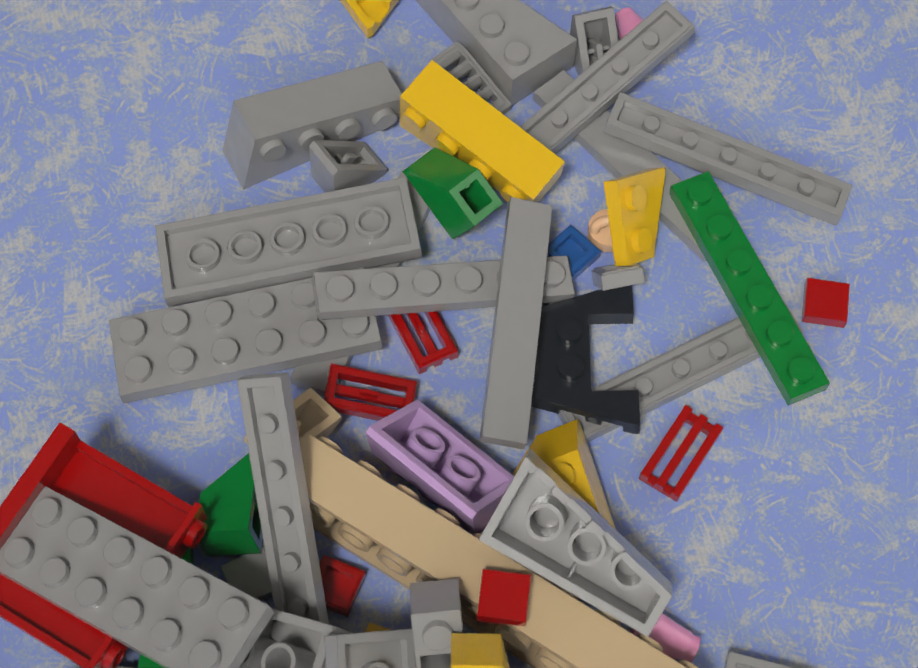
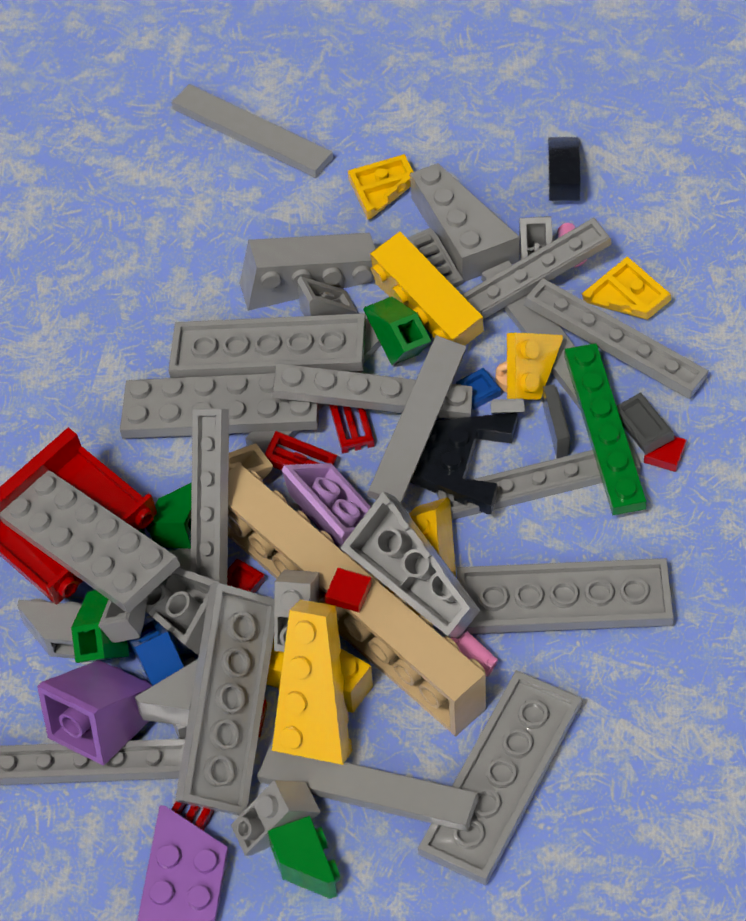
camera: 20 degrees right, 10 degrees down
(684, 286) = (556, 421): none -> dark grey tile
(698, 424) = (513, 527): red tile -> none
(723, 90) = (628, 291): none -> yellow wing
(766, 528) = (568, 595): none -> light grey plate
(794, 271) = (644, 423): none -> dark grey tile

